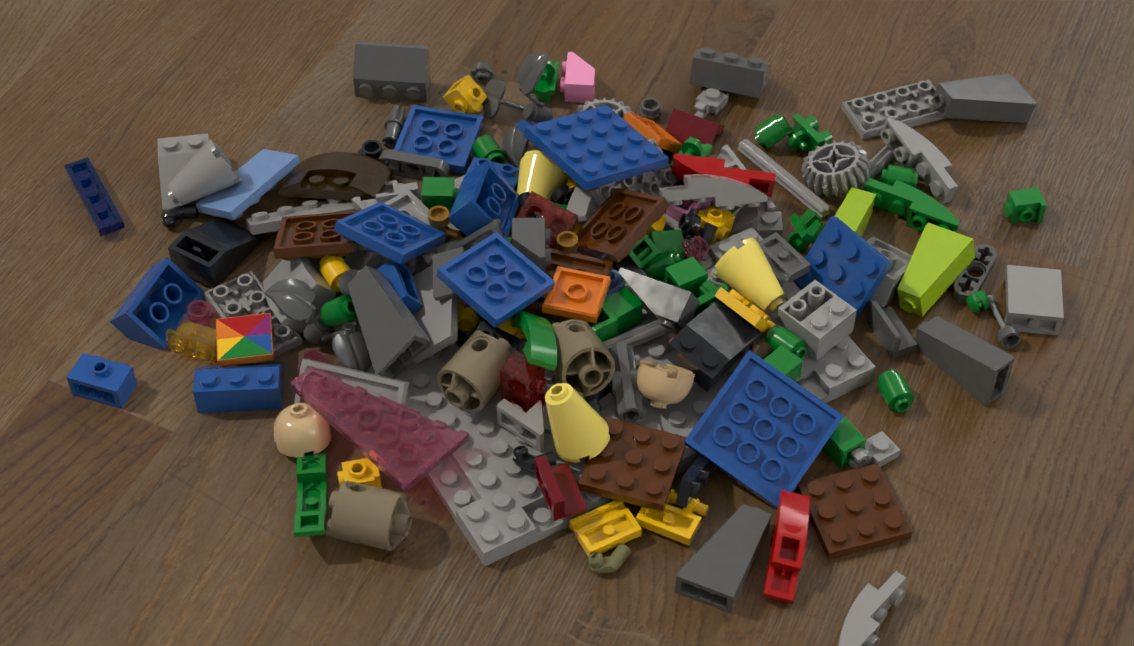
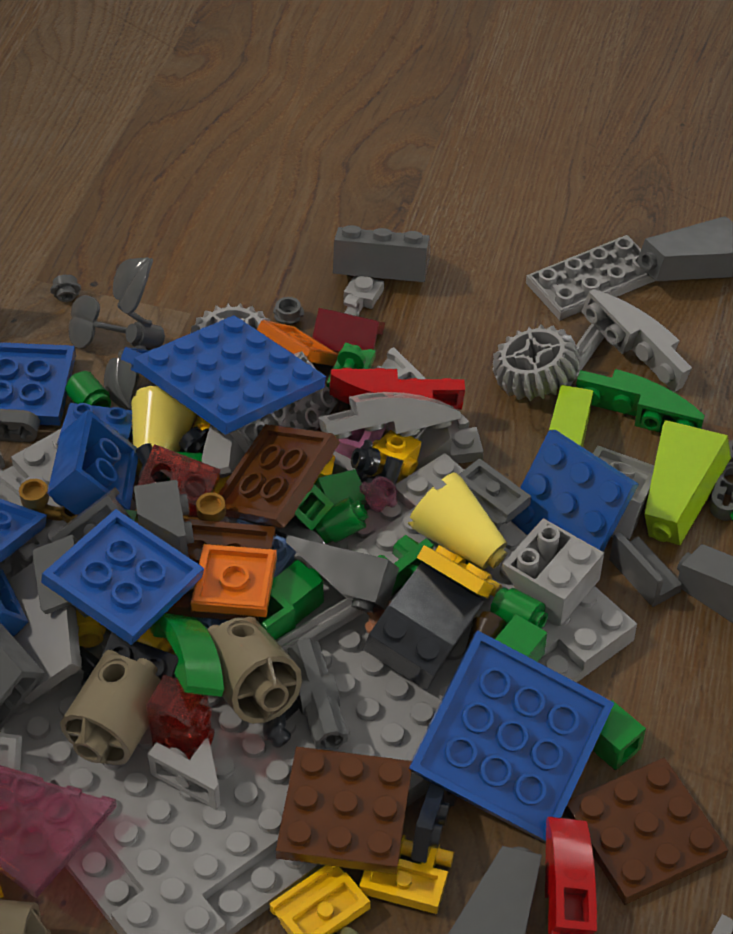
camera: 10 degrees left, 0 degrees up
(439, 192) = (30, 459): green brick -> none
(465, 96) = (48, 322): yellow brick -> none
(526, 460) = (206, 828): black arm -> none
(548, 81) = (153, 293): green hips -> none
(559, 489) = (250, 862): dark red panel -> none
(574, 424) = (260, 769): light yellow cone -> none
(578, 79) = (191, 285): bright pink slope -> none
(663, 383) = (369, 688): tan cylinder -> none
(686, 275) = (373, 533): green brick -> none
(772, 131) = (447, 322): green brick -> none
(784, 178) = (473, 382): light grey axle -> none
(805, 134) = (489, 324): green hips -> none
(807, 230) = (517, 448): green hips -> none
(877, 450) = (661, 740): light grey plate -> none
(895, 391) = (667, 653): green brick -> none
(899, 173) = (615, 359): green brick -> none

